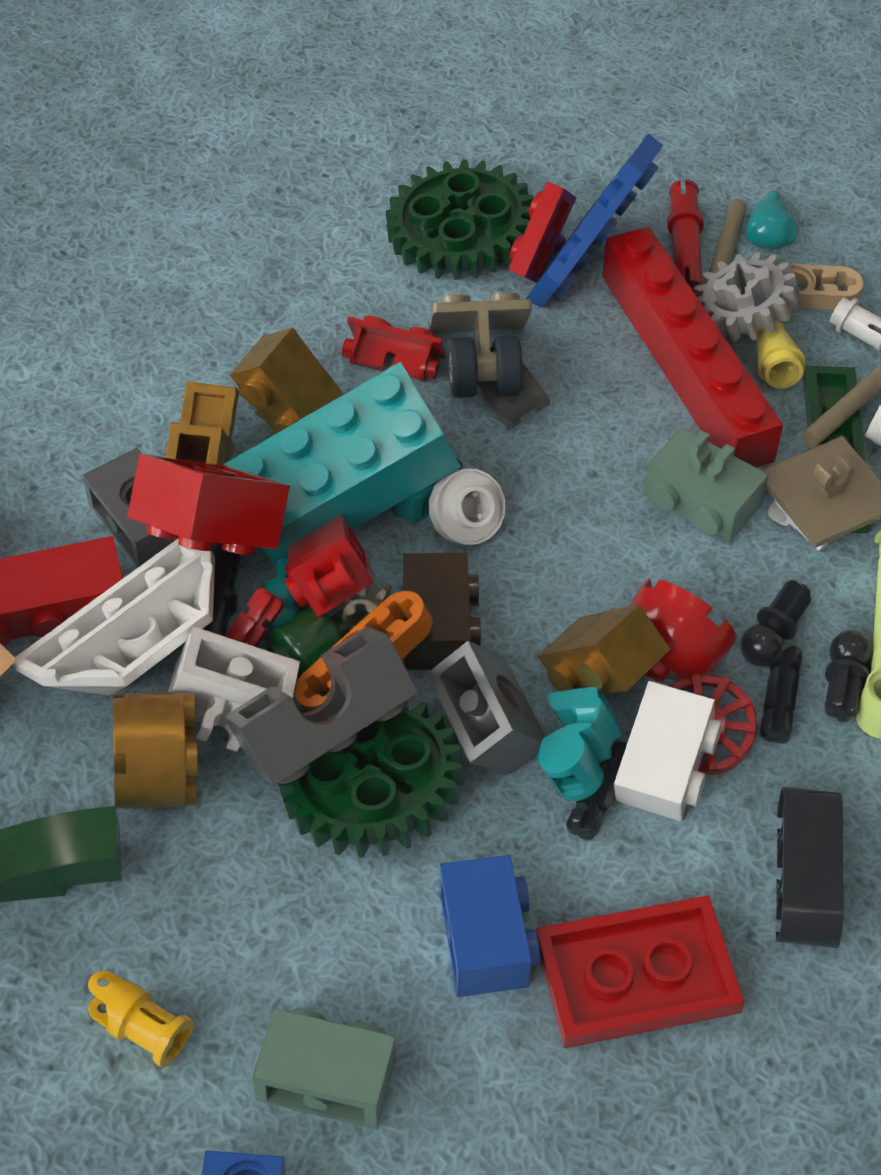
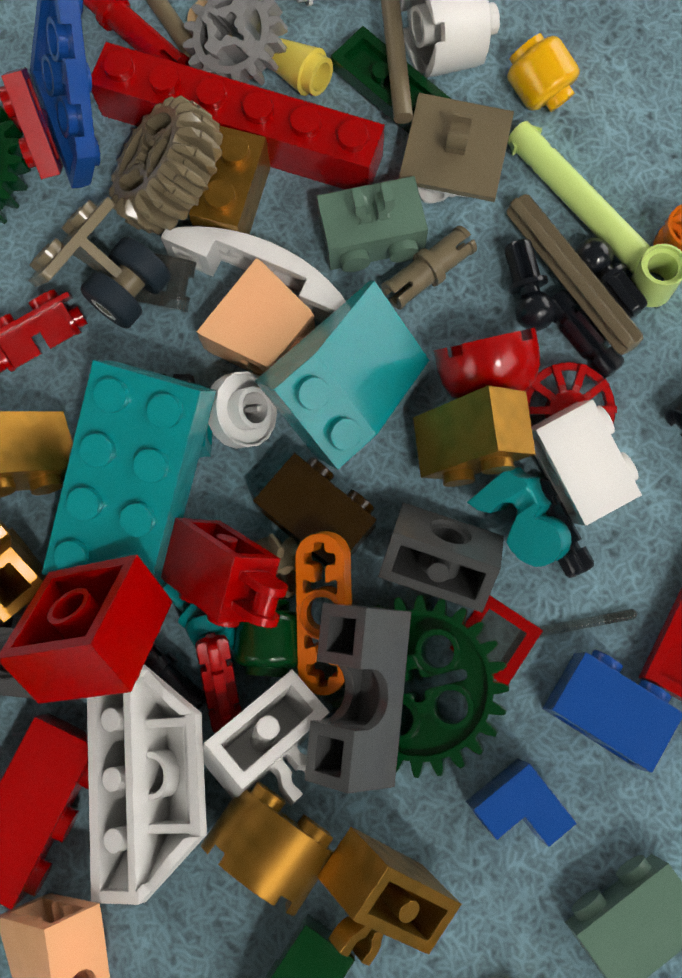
camera: 45 degrees left, 25 degrees up
(187, 847) = (384, 897): none -> pearl gold brick
(344, 899) = (520, 795): none -> blue piece
(478, 823) = (518, 635): none -> piece
(544, 476) = (256, 321): none -> light nougat torso
(566, 544) = (346, 376): none -> teal slope
(576, 404) = (212, 244): none -> white slope
(597, 323) = (166, 165): none -> dark tan gear
(629, 380) = (237, 185): none -> pearl gold brick
(715, 549) = (429, 267): none -> dark tan pin
(819, 646) = (575, 275): none -> dark tan axle

